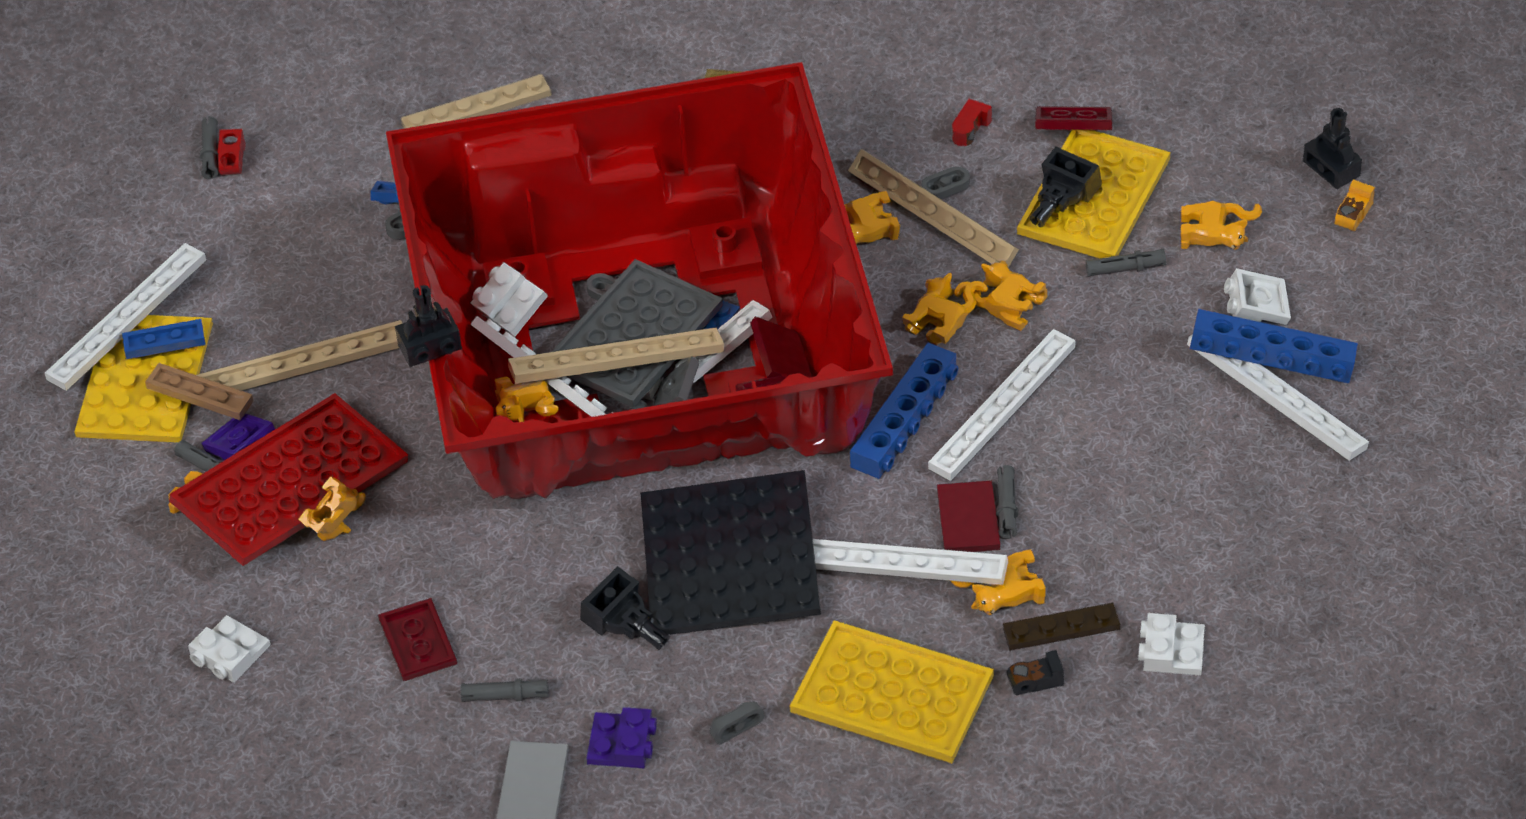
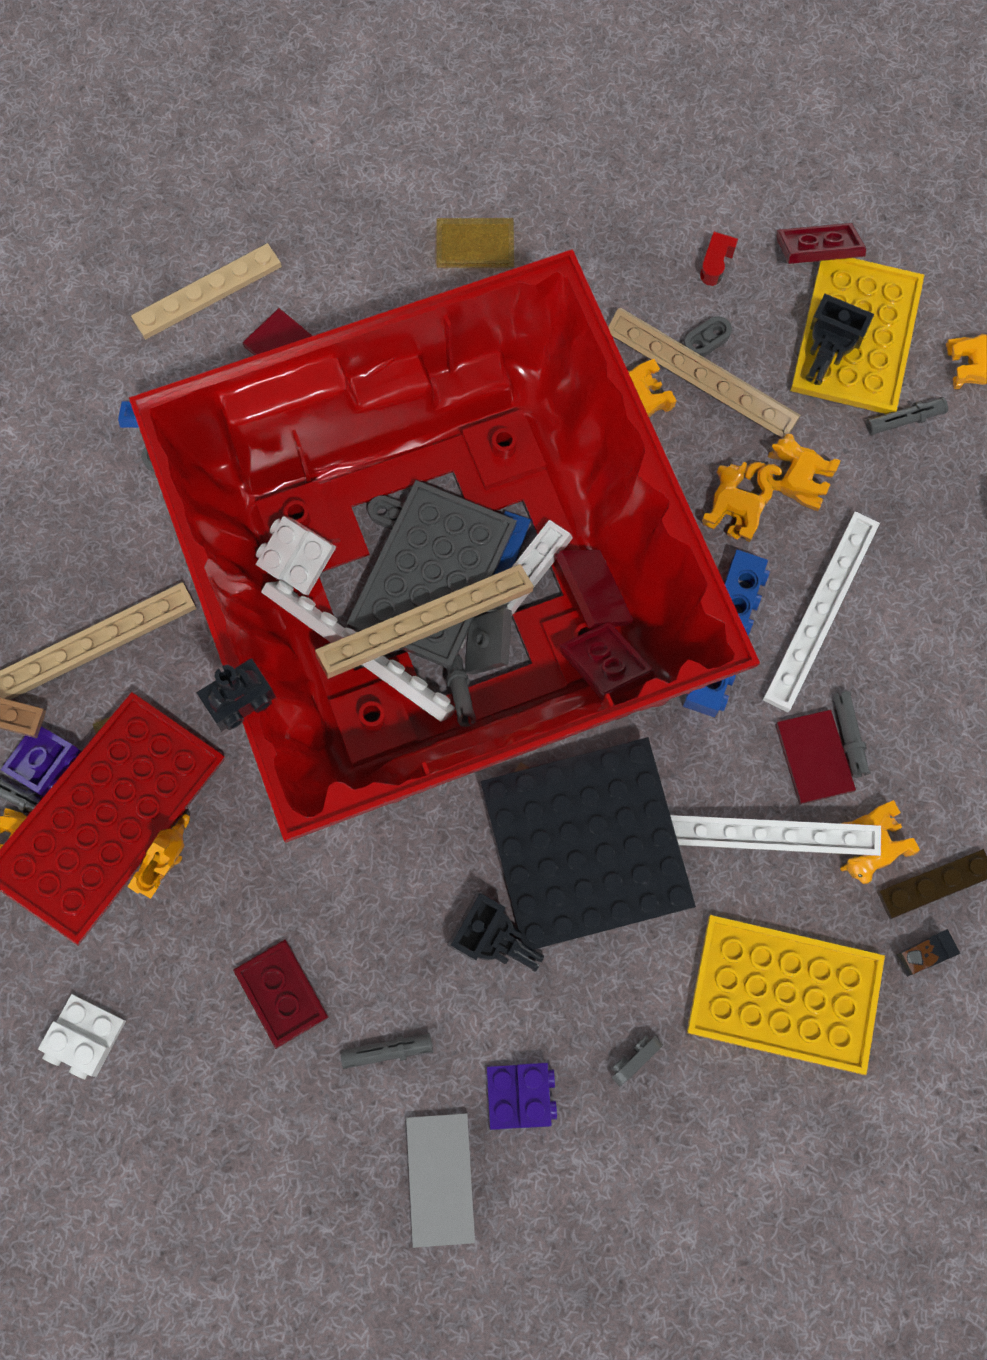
camera: 15 degrees left, 25 degrees up
(523, 397) = (330, 689): light orange animal -> none

